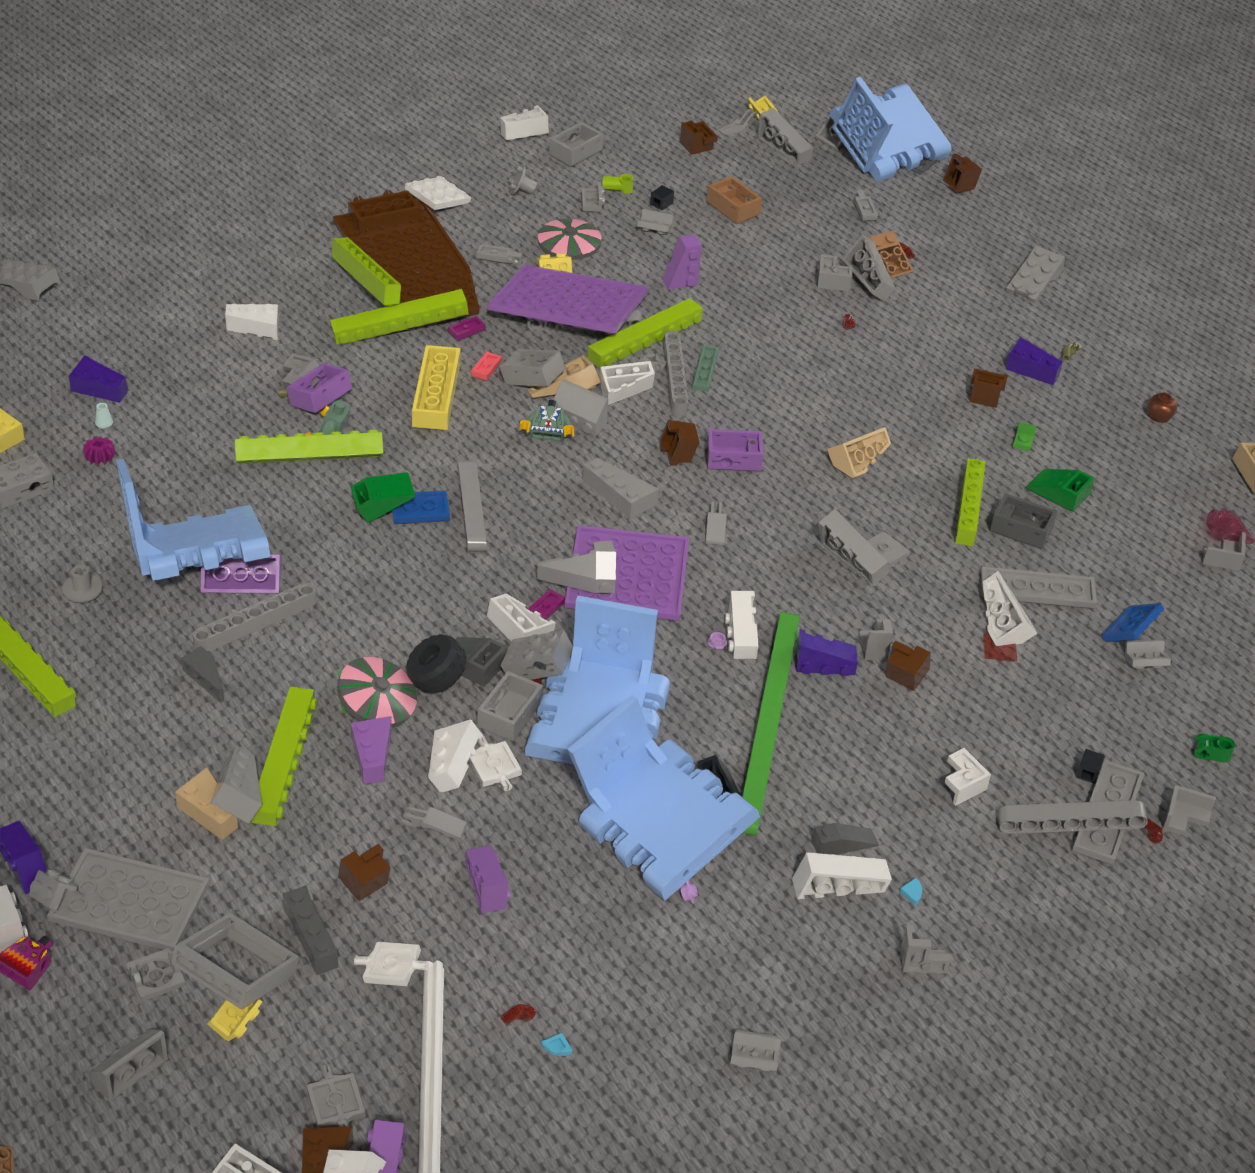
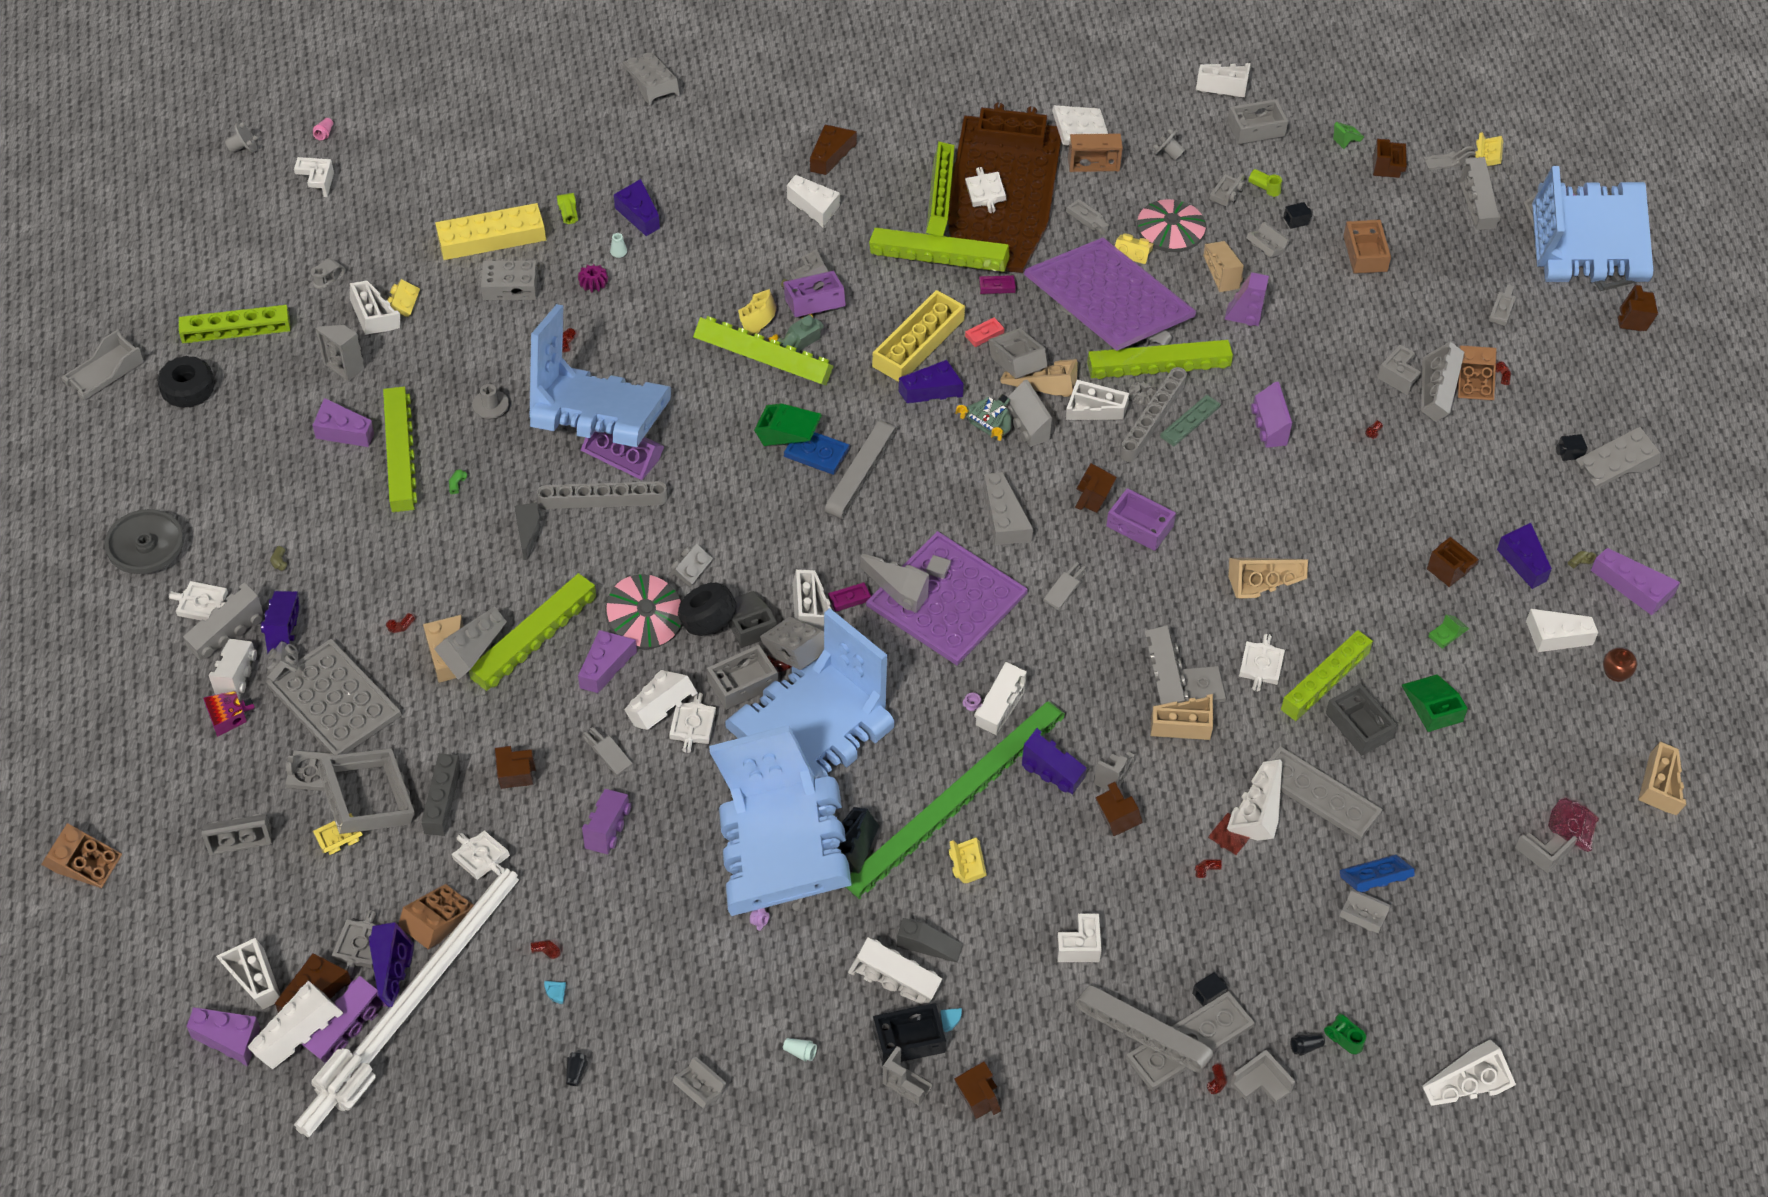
camera: 35 degrees right, 10 degrees up
(25, 402) = (568, 207): none -> lime piece
(98, 664) = (454, 480): none -> bright green arm
(112, 507) = (568, 336): none -> clear red arm
(146, 808) = (395, 627): none -> clear red arm
(237, 276) = (831, 147): none -> reddish brown wedge
(278, 419) = (758, 312): none -> light yellow brick
(378, 1089) = (390, 956): none -> dark purple wedge
(383, 639) = (691, 564): none -> light grey bracket
(390, 1038) = (434, 915): none -> medium nougat slope
(400, 261) = (985, 189): none -> white plate
(472, 202) = (1095, 148): none -> medium nougat piece
(477, 418) = (931, 383): none -> dark purple wedge
(633, 1099) = (575, 1068): none -> black cone
(638, 249) = (1223, 266): none -> tan wedge
(649, 132) = (1345, 133): none -> bright green slope
(770, 337) = (1272, 416): none -> medium lavender slope
(814, 978) = (800, 1048): none -> light aqua cone
(822, 760) = (967, 860): none -> light yellow bracket
(886, 922) = (915, 1036): none -> black piece
(897, 578) = (1184, 720): none -> tan wedge
(913, 514) = (1262, 662): none -> white plate
(992, 931) = (977, 1090): none -> reddish brown plate
(997, 280) = (1571, 447): none -> black brick
(1003, 678) = (1206, 865): none -> clear red arm
(1100, 402) = (1560, 630): none -> white wedge
(1119, 349) = (1634, 580): none -> medium lavender wedge
(1191, 770) = (1305, 1043): none -> black cone

